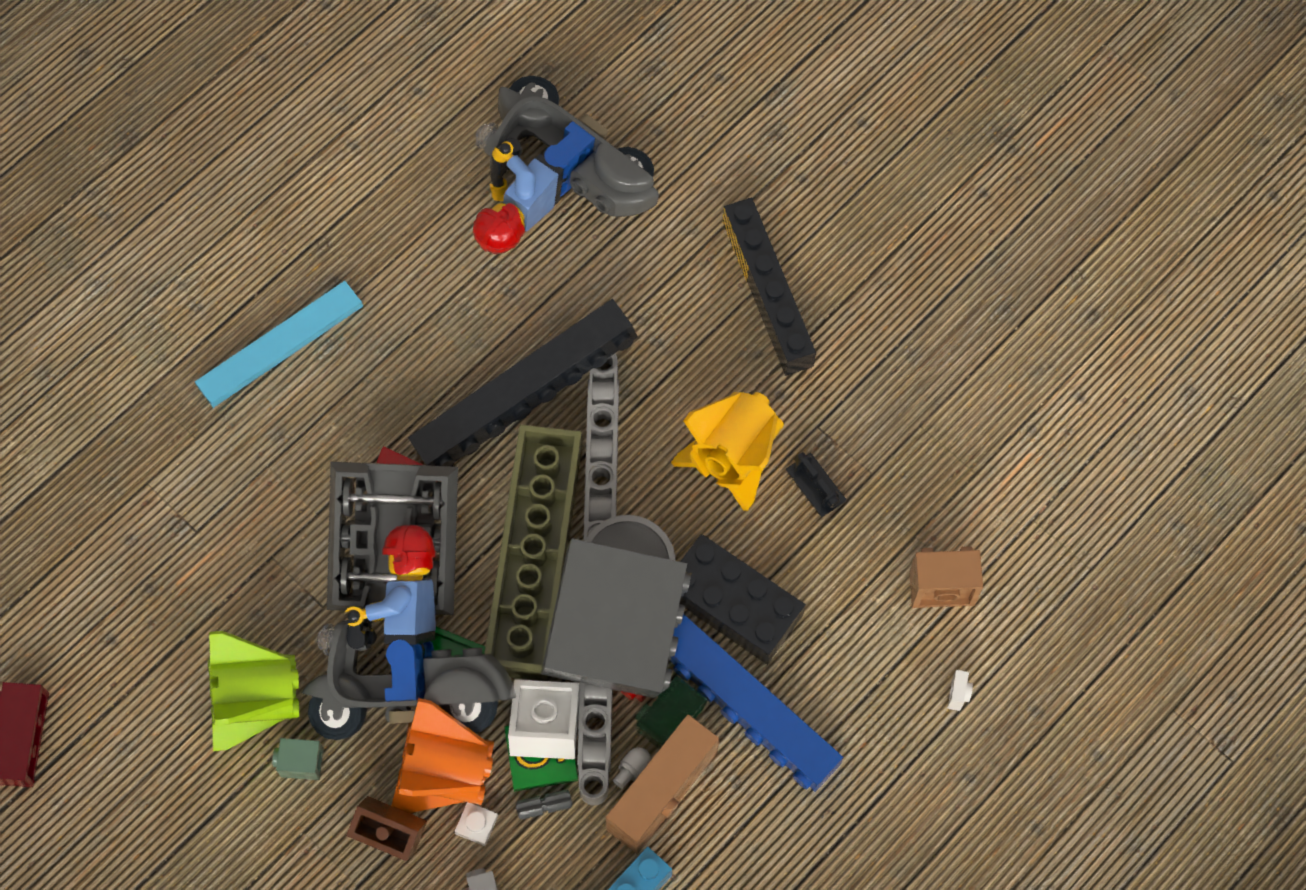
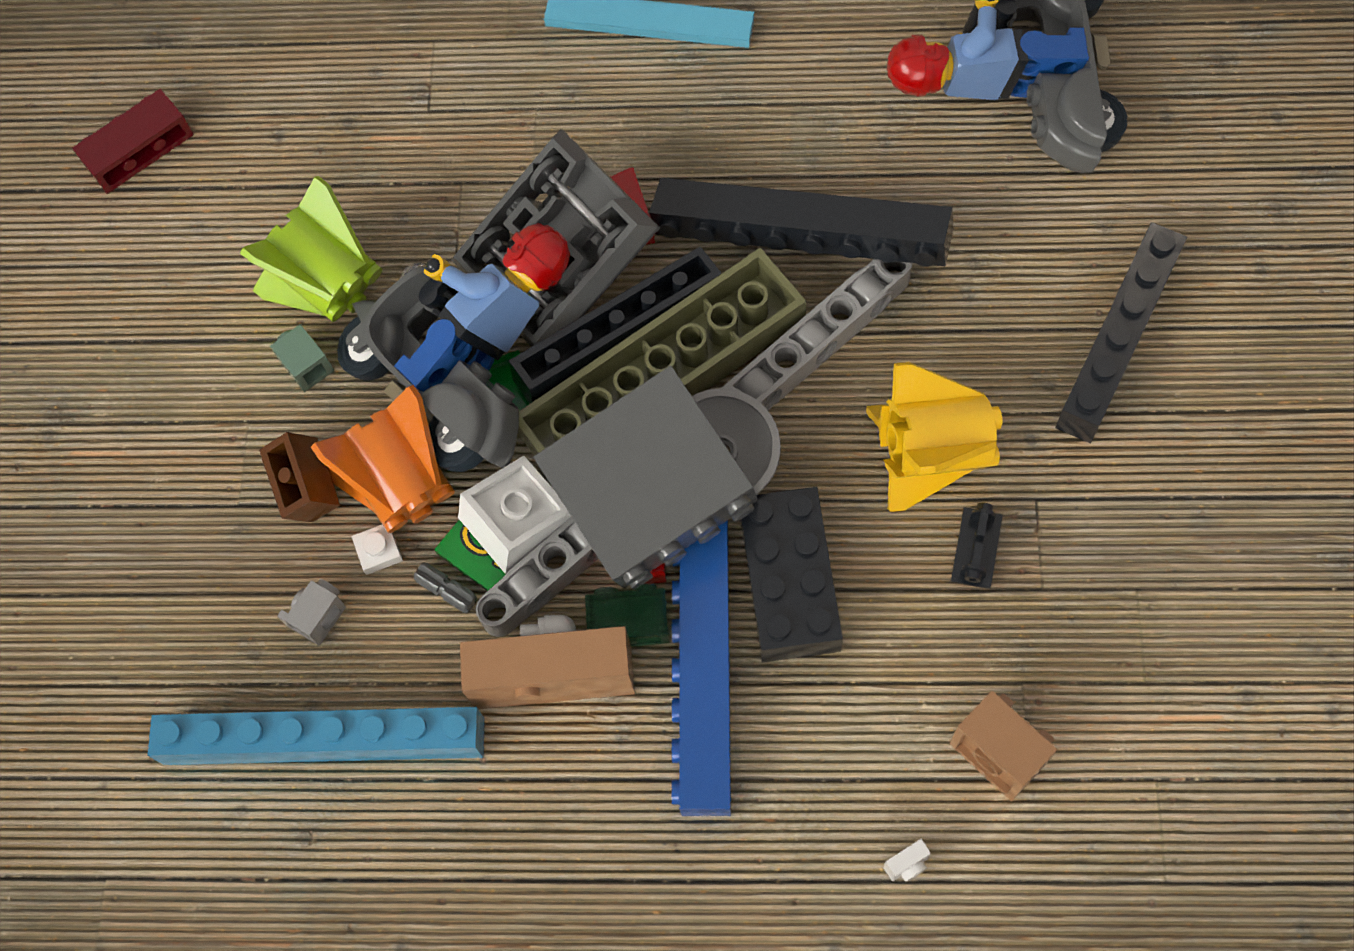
camera: 55 degrees right, 0 degrees up
(481, 555) = (600, 330): none -> black brick

